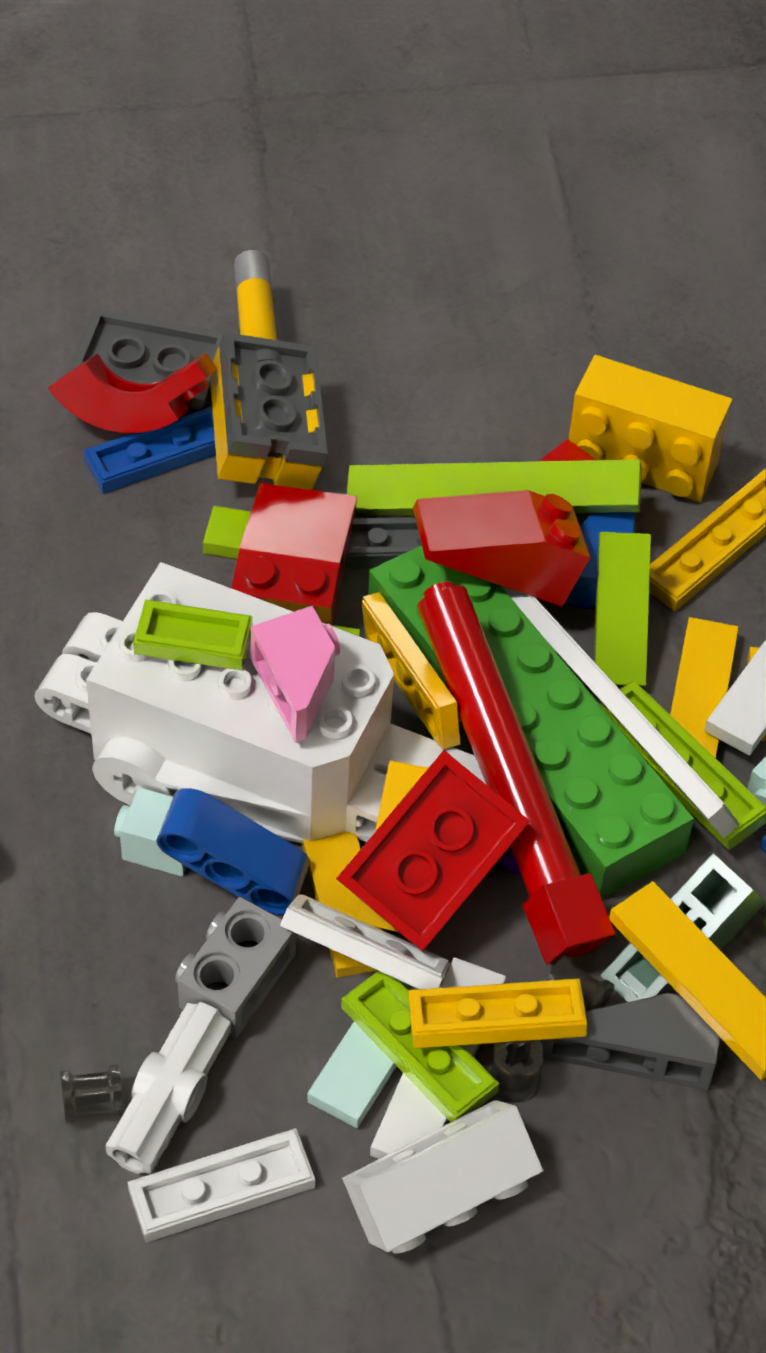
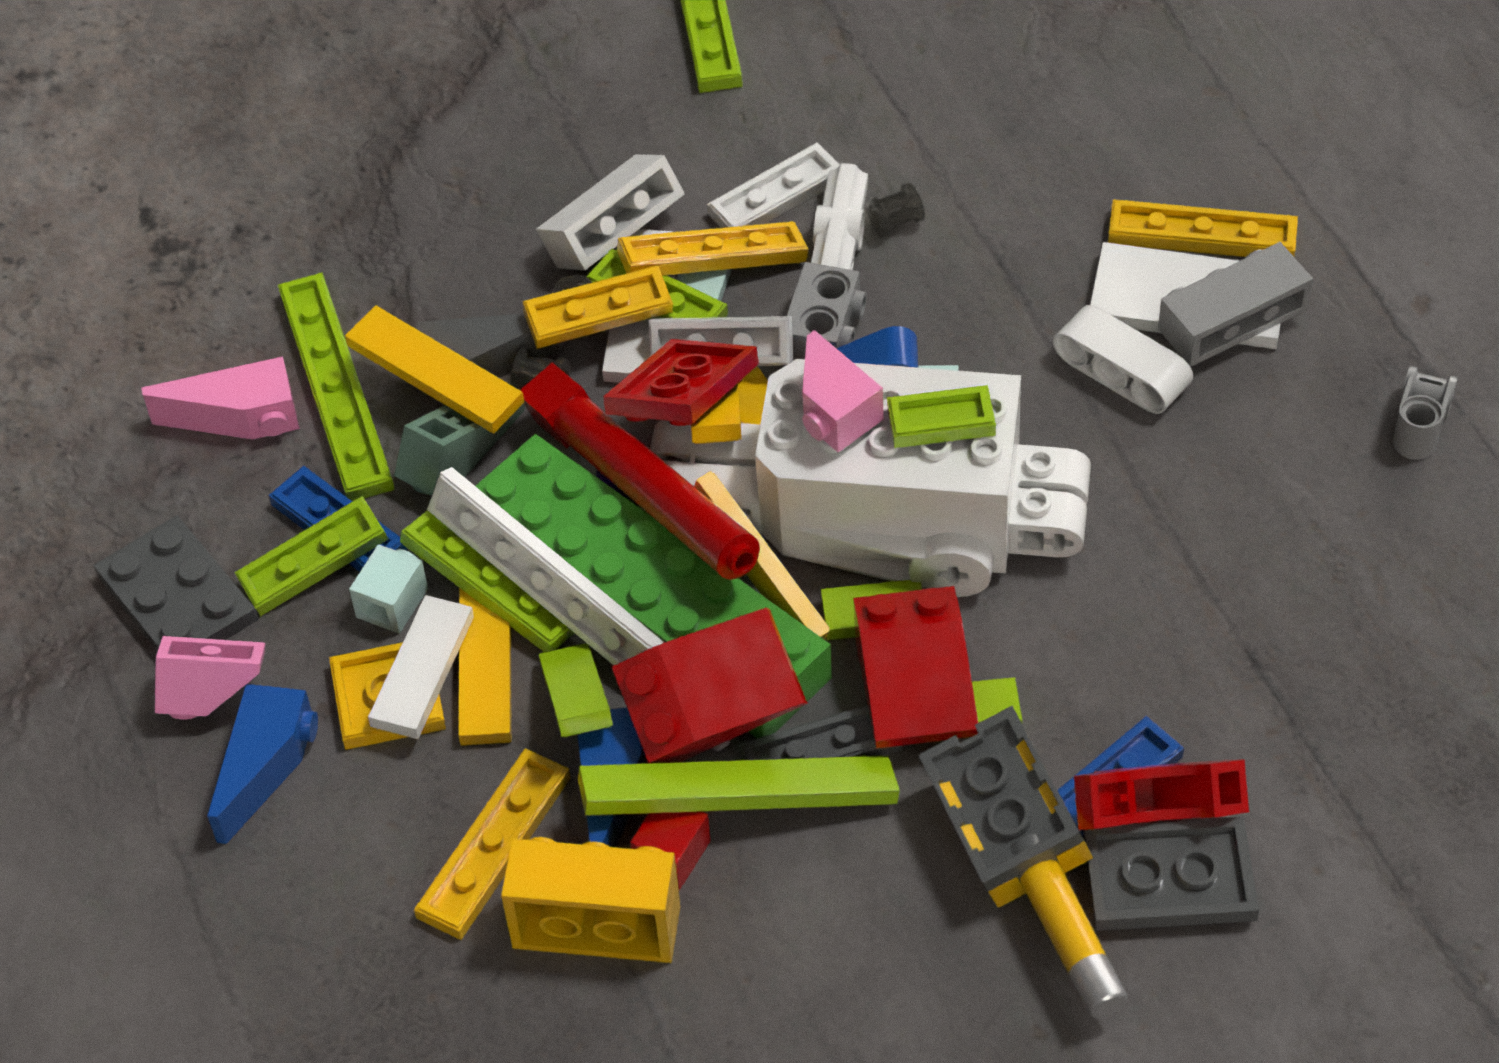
camera: 170 degrees right, 0 degrees up
(334, 1085) = (714, 249): none -> yellow tile

